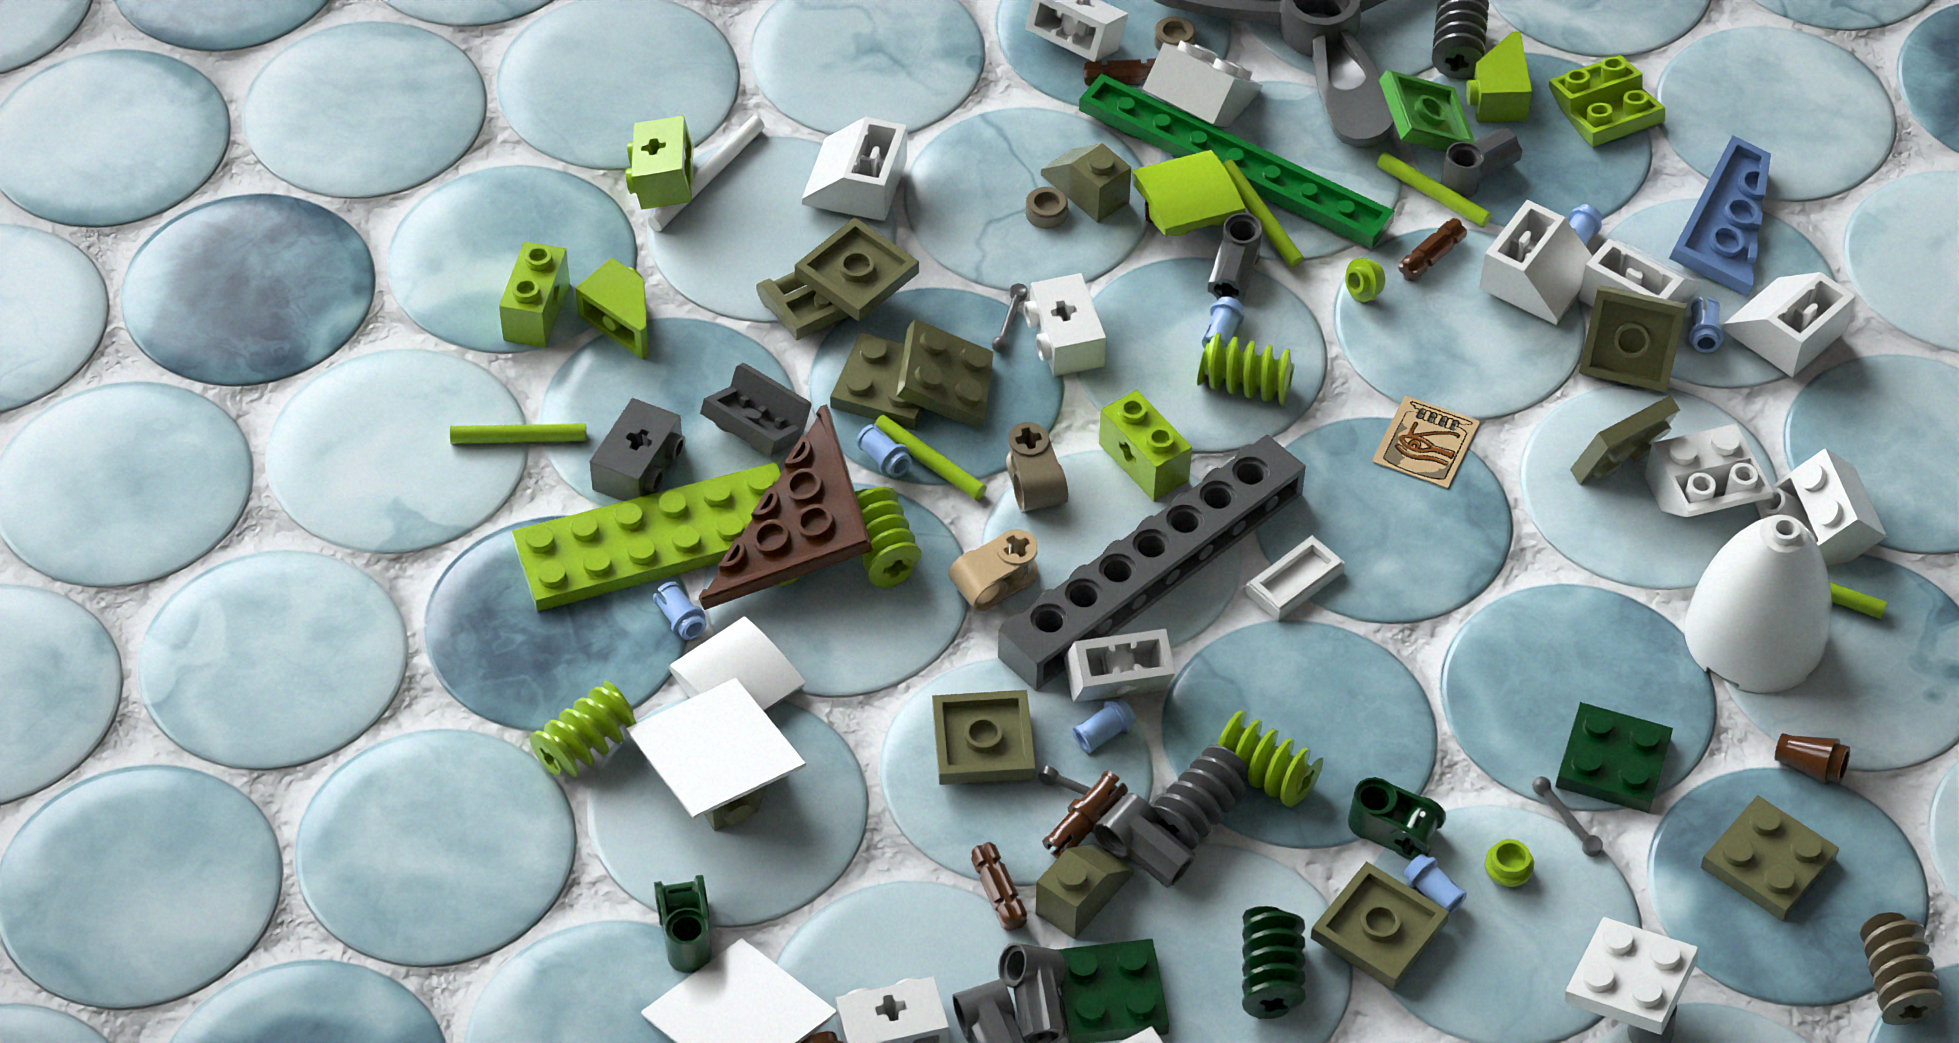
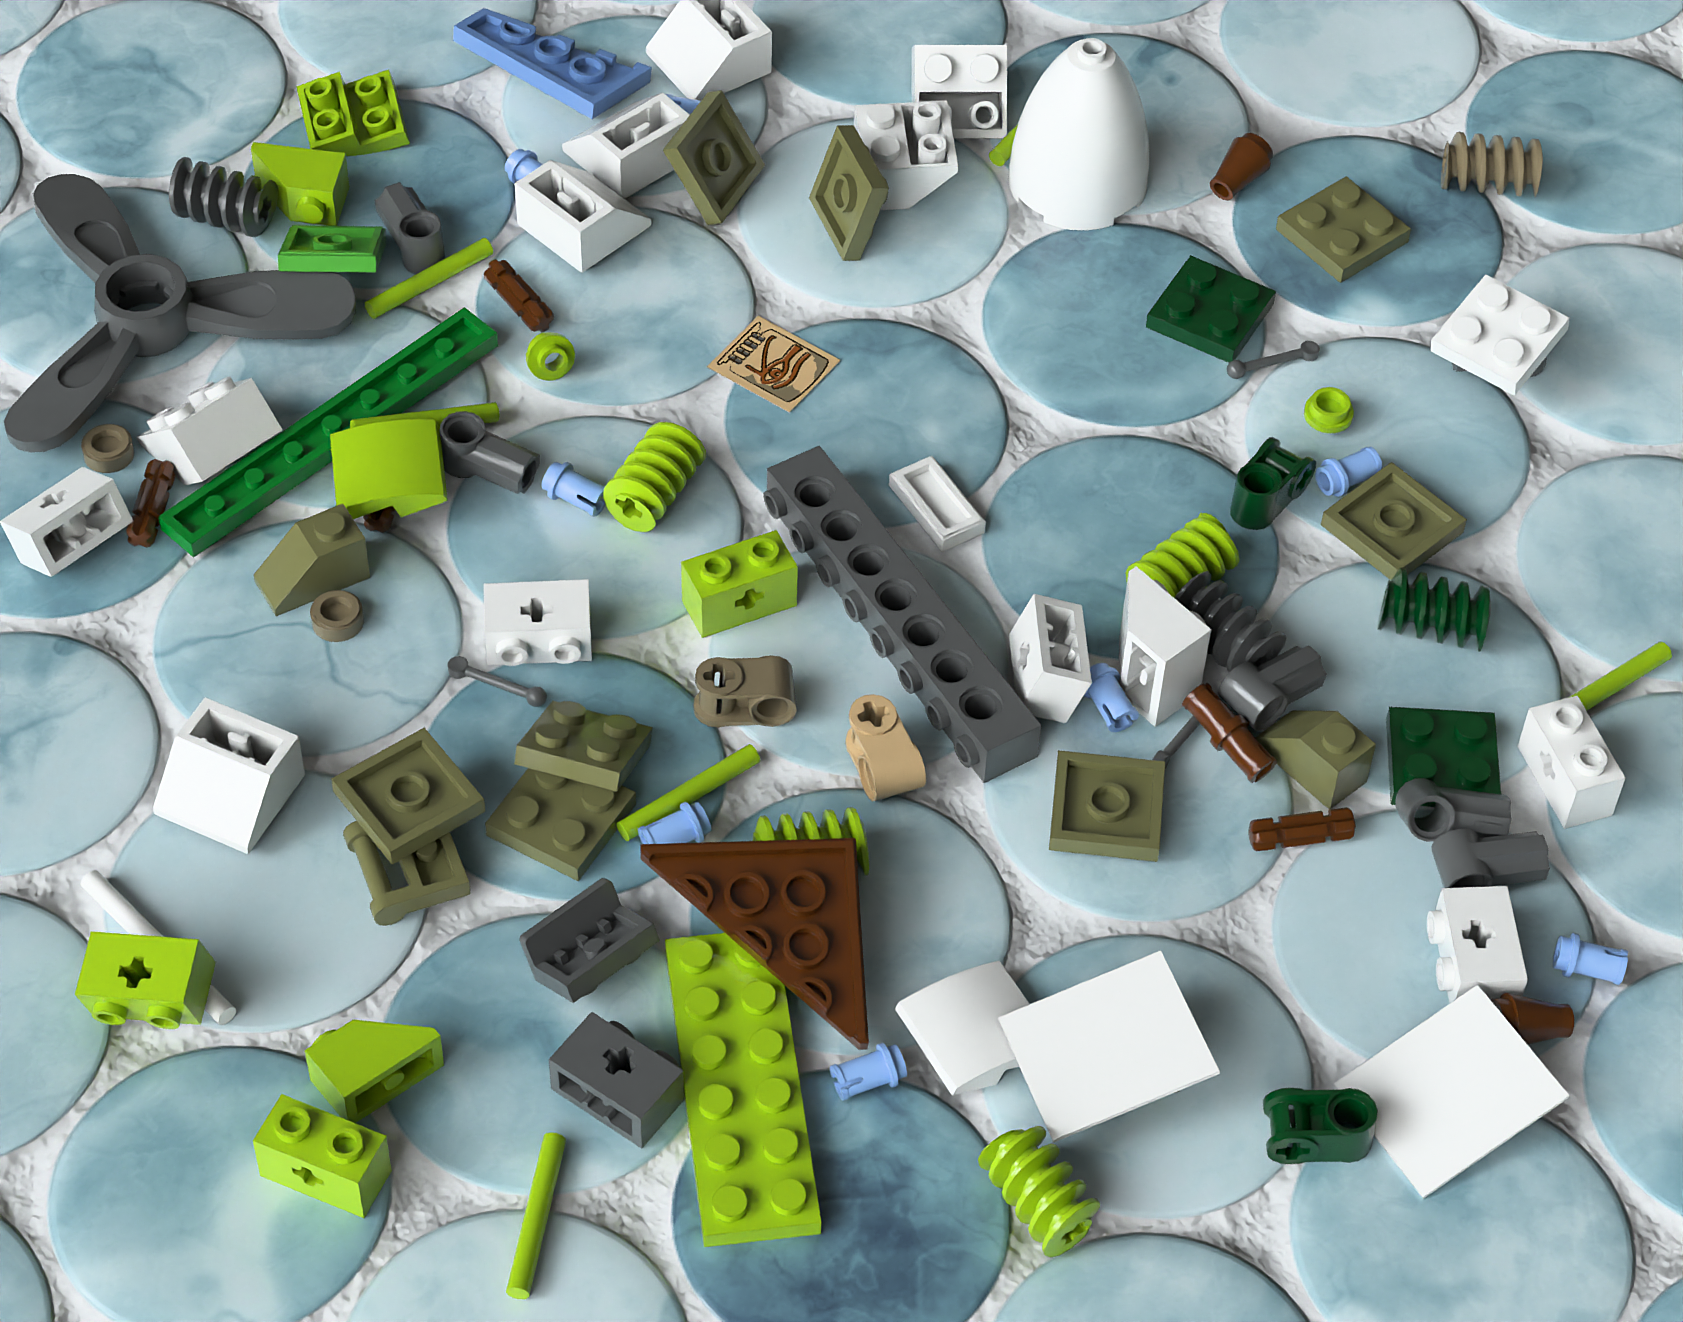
camera: 80 degrees left, 0 degrees up
(1147, 733) = (1159, 648): none -> white slope

